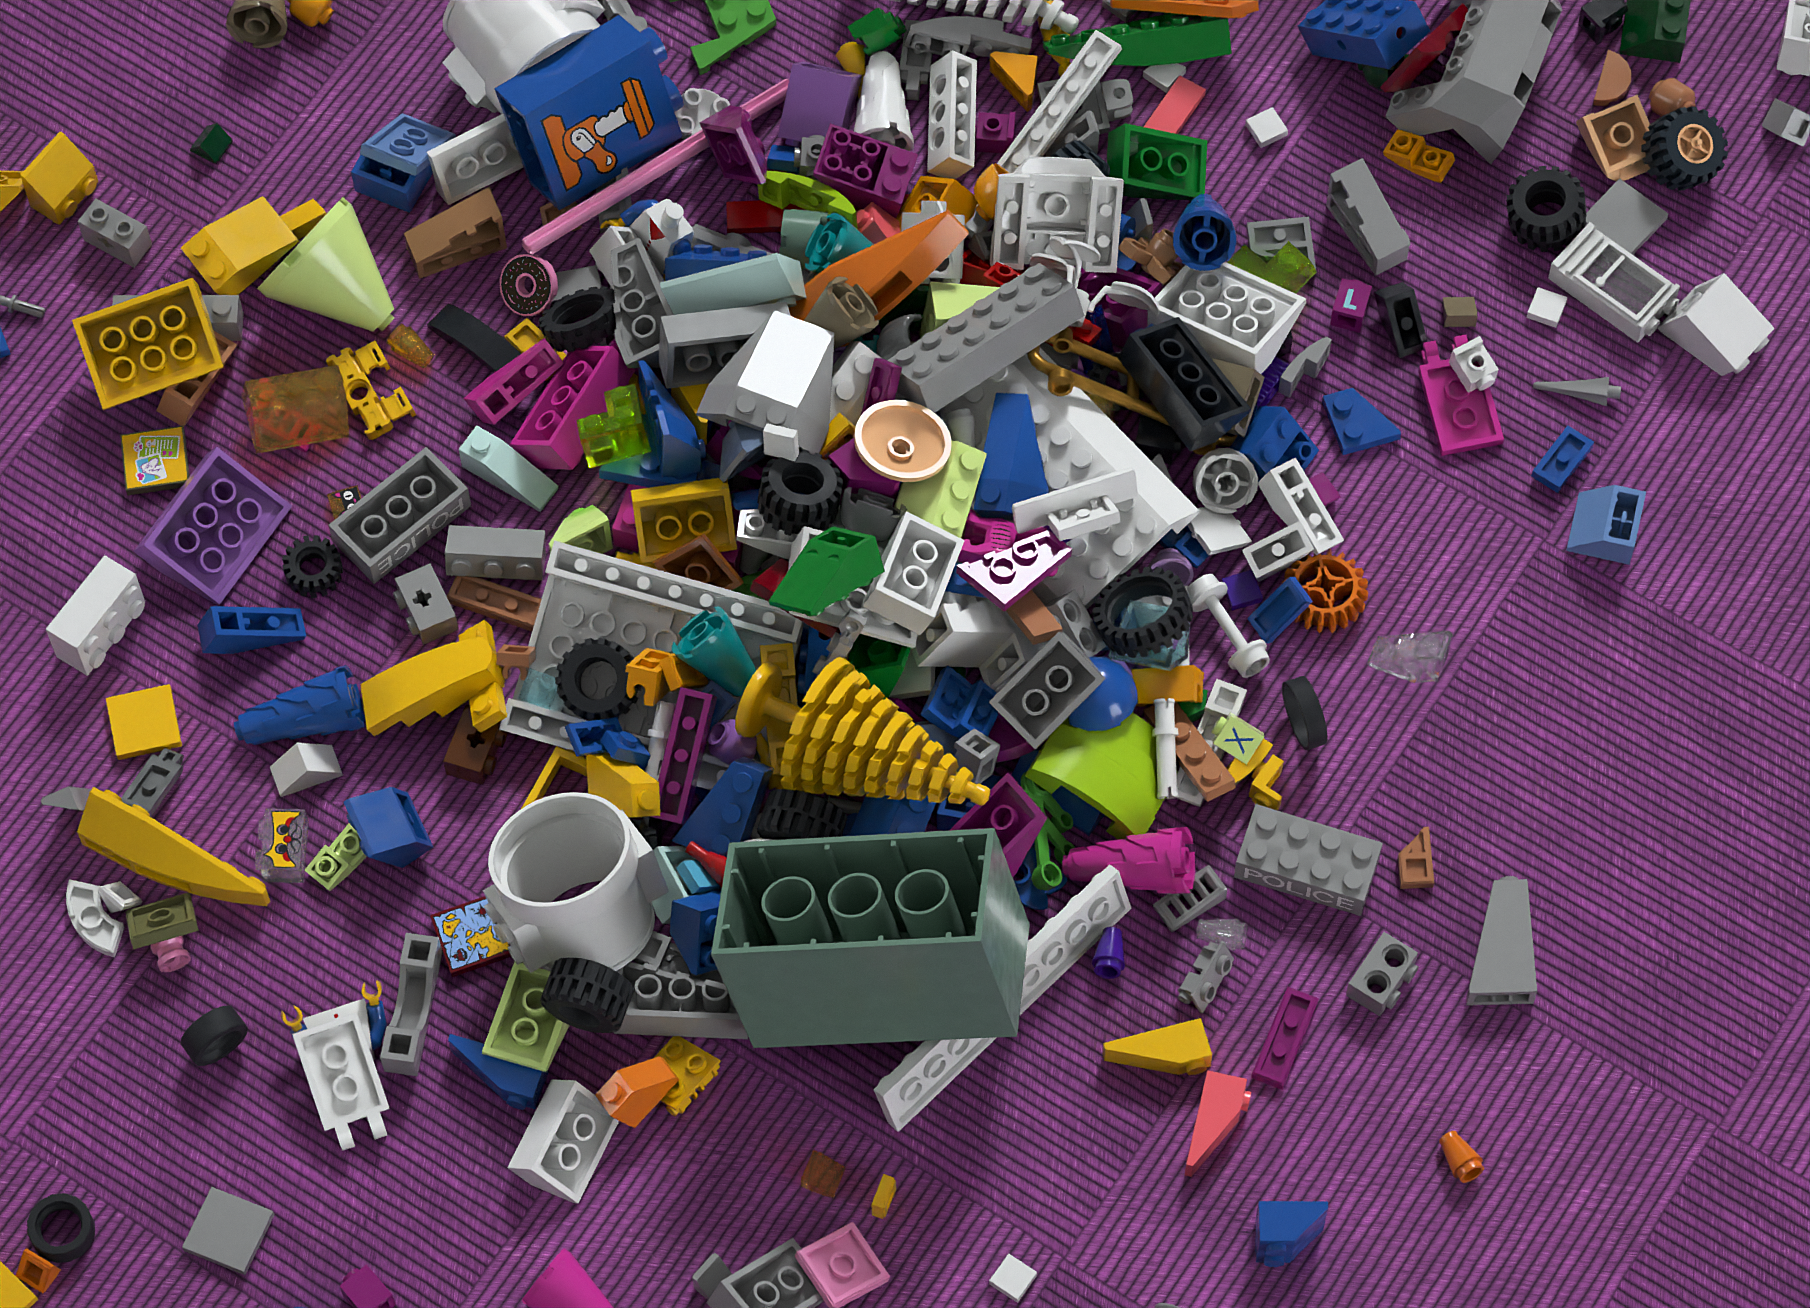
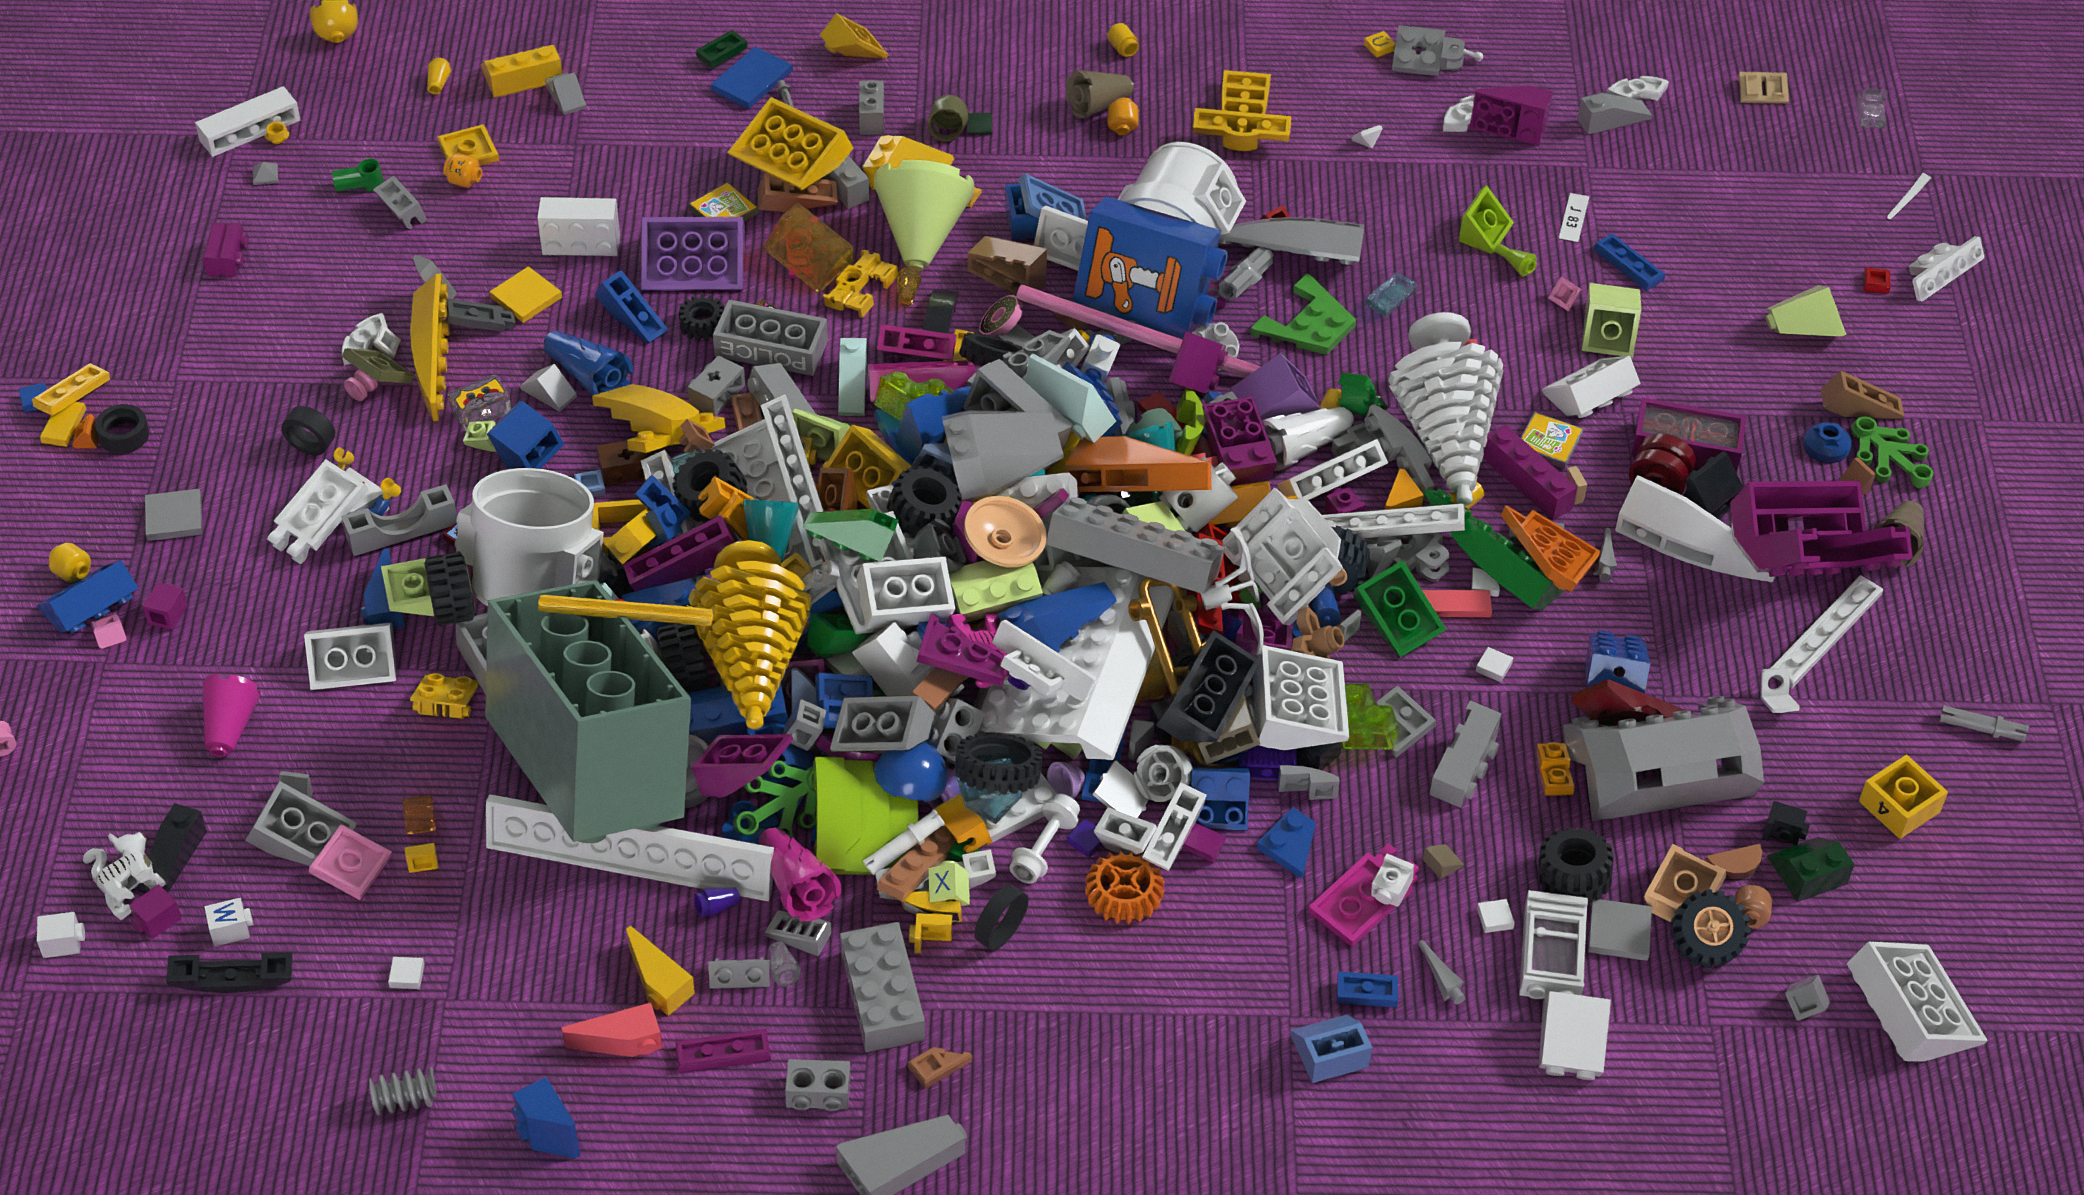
camera: 55 degrees right, 15 degrees down
(58, 179) = (886, 58): yellow slope -> none
(183, 161) = (947, 113): none -> olive helmet
(475, 797) = (593, 481): none -> light blue tile
(636, 1090) = (408, 668): orange slope -> none
(781, 442) = (945, 462): white tile -> none
(804, 834) = (631, 610): none -> yellow axle
(844, 311) = (1087, 455): dark tan cone -> none
(1204, 235) = (1350, 646): blue cone -> none
(1279, 610) = (1081, 862): blue tile -> none
(1351, 305) = (1385, 785): magenta brick -> none
(1401, 318) = (1400, 821): black slope -> none
(1412, 656) = (1109, 969): clear slope -> none

